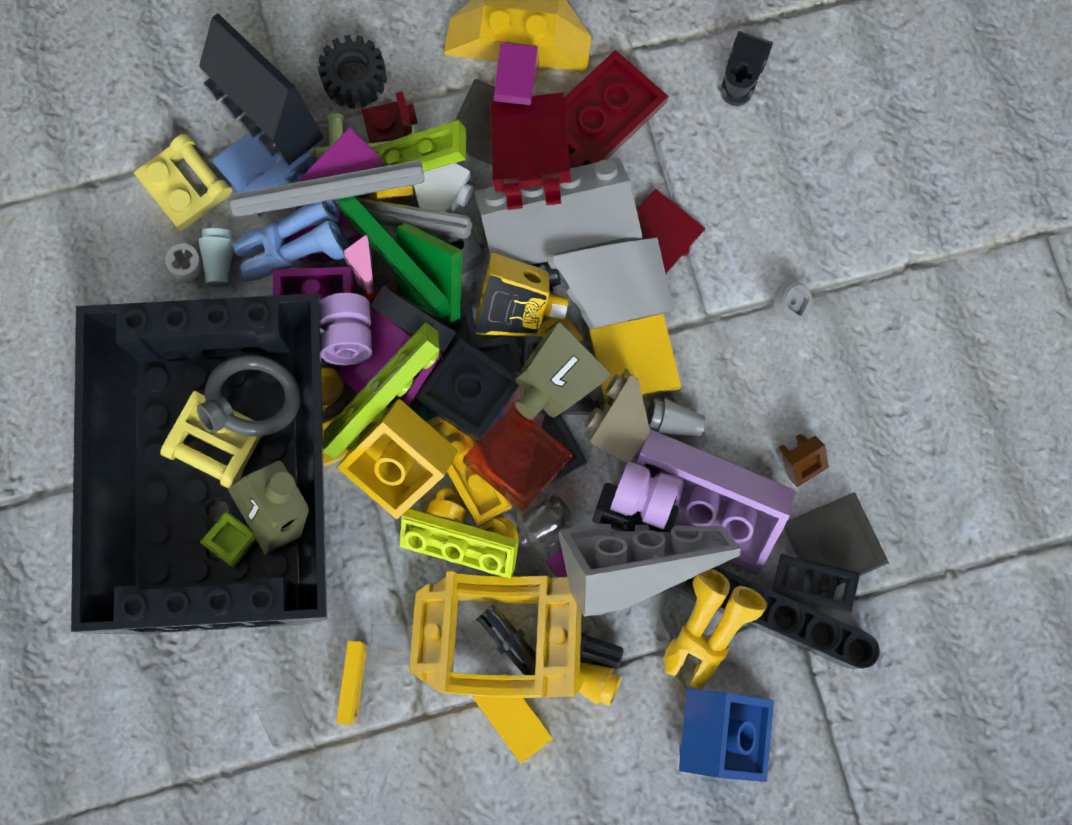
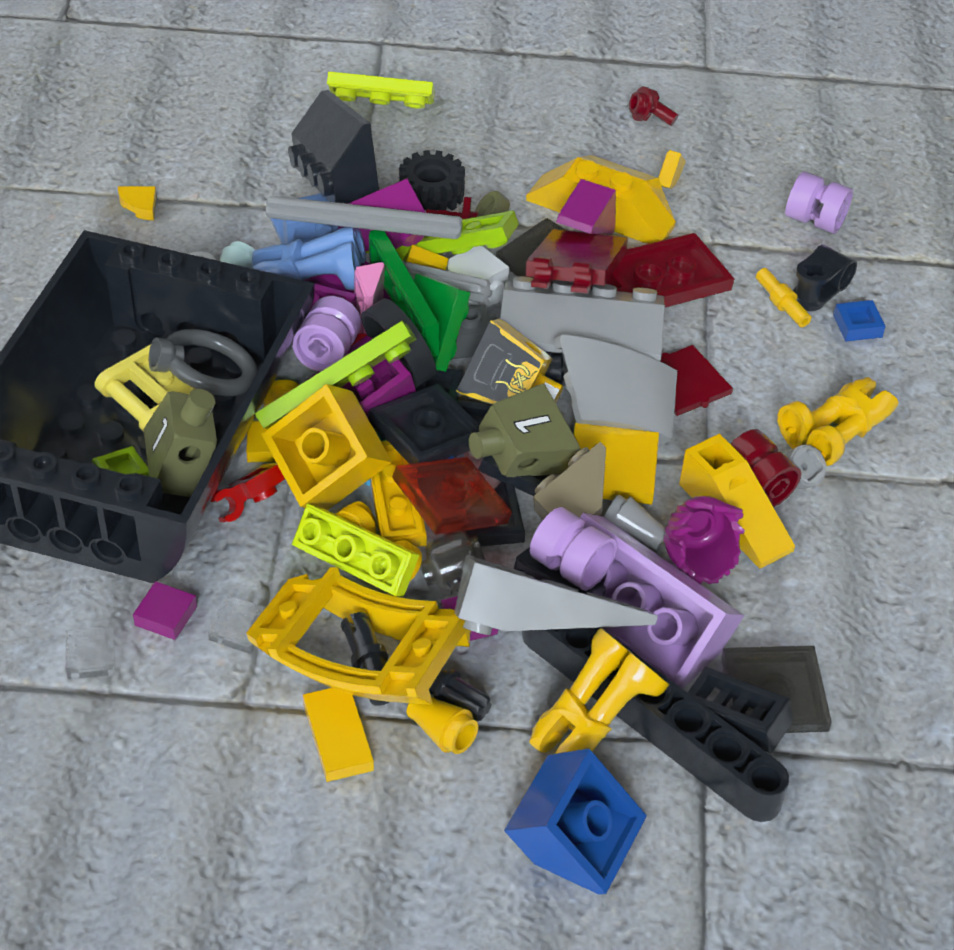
camera: 20 degrees right, 30 degrees down
(88, 194) = (139, 200): none -> yellow tile
(172, 189) = (218, 219): light yellow plate -> none
(324, 653) = (165, 610): none -> magenta tile
(341, 502) = (255, 485): none -> red plate
(352, 683) = (179, 637): yellow tile -> none
(424, 90) = (492, 203): none -> olive tile
(717, 101) = (783, 297): none -> yellow bar
(739, 424) = (704, 538): none -> magenta hair
(752, 369) = (723, 473): none -> yellow slope
(760, 324) = (773, 469): none -> dark red wheel
(789, 104) = (859, 320): none -> blue tile
(805, 460) = (767, 599): reddish brown tile -> none
(808, 219) = (849, 408): none -> yellow piece

